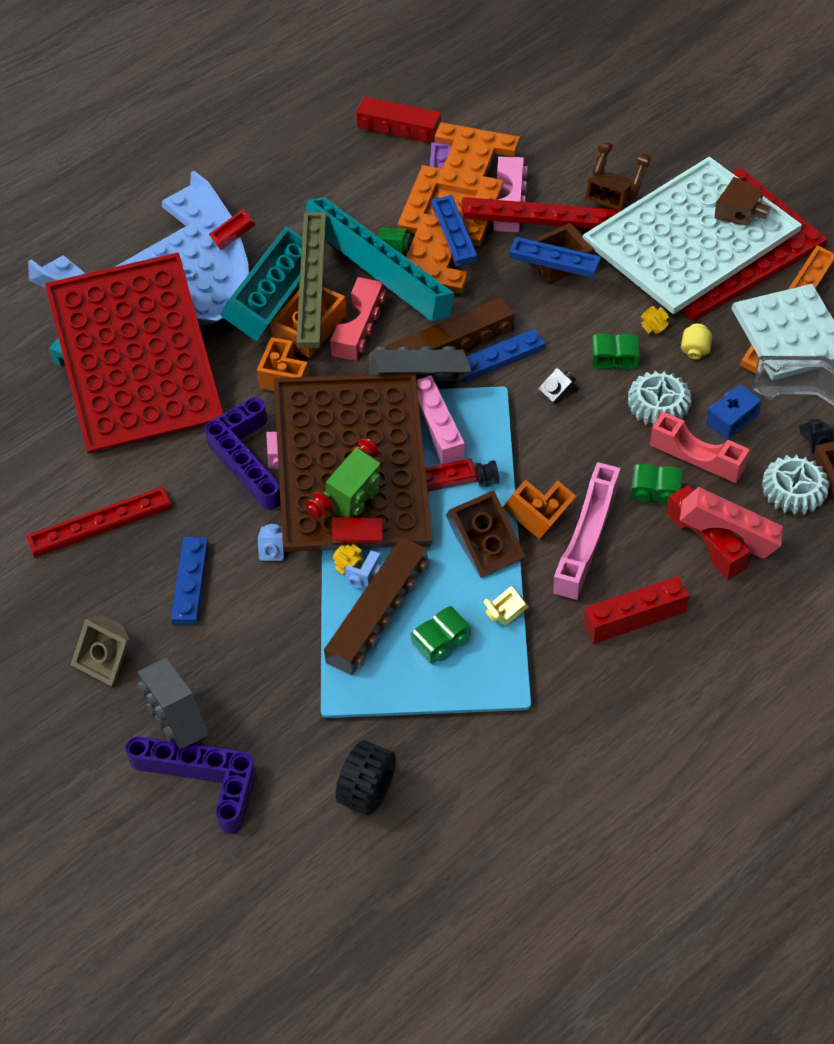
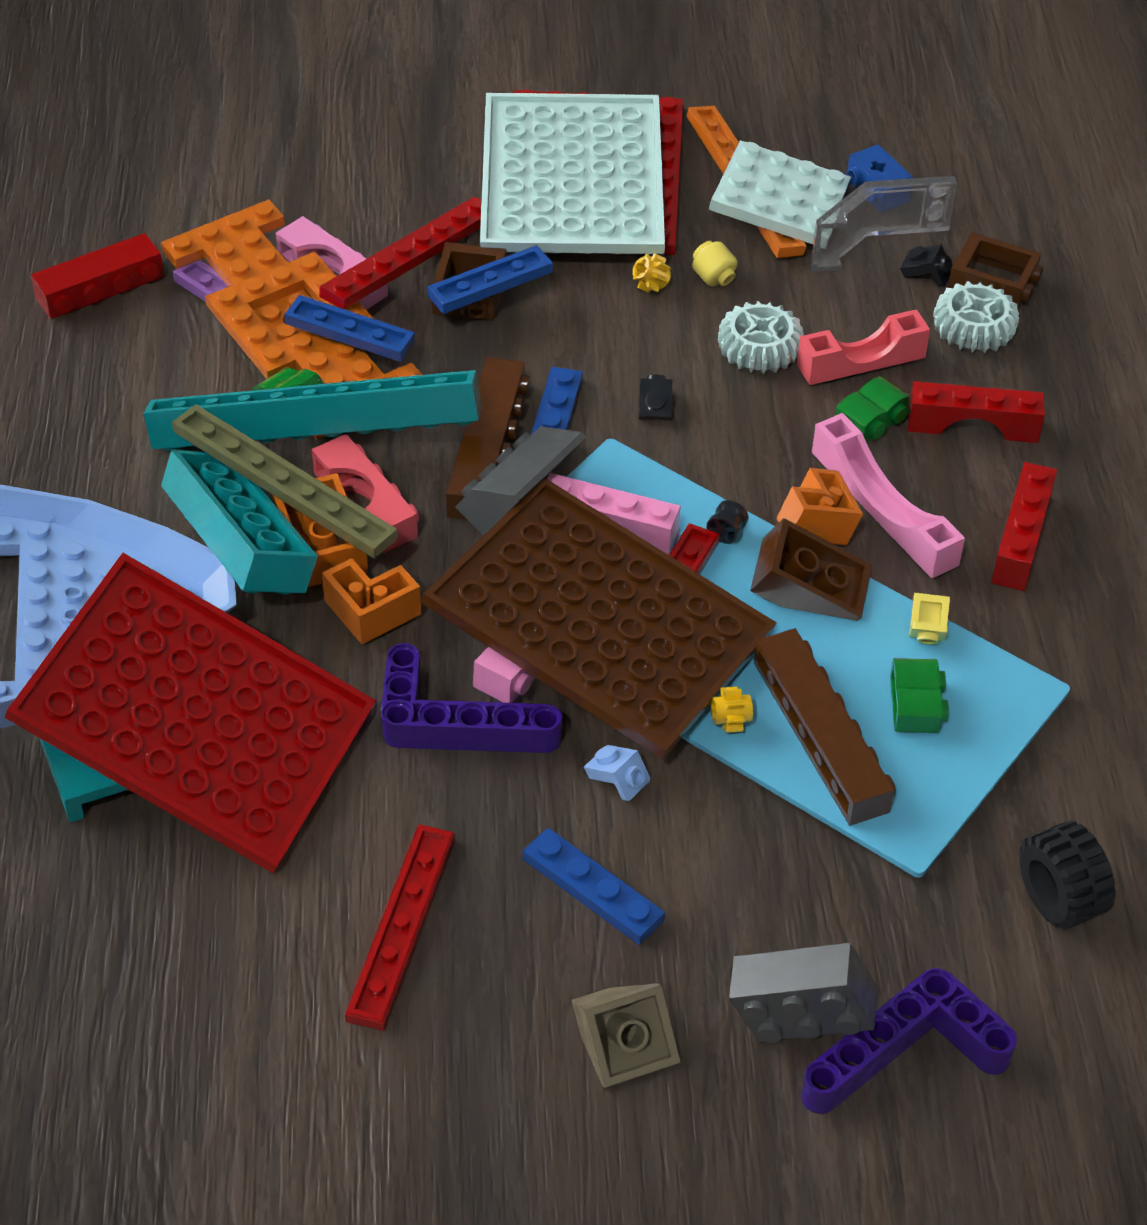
camera: 55 degrees left, 5 degrees down
(232, 229) = (96, 507): red tile -> none
(350, 484) = (659, 620): bright green brick -> none
(356, 530) = (709, 670): red tile -> none
(362, 577) = (767, 706): light blue bracket -> none
(614, 189) = (438, 184): reddish brown torso -> none
(615, 351) = (657, 327): green brick -> none
(709, 510) = (983, 377): coral arch -> none
(733, 412) = (837, 298): blue brick -> none
(741, 203) = (589, 108): reddish brown torso -> none

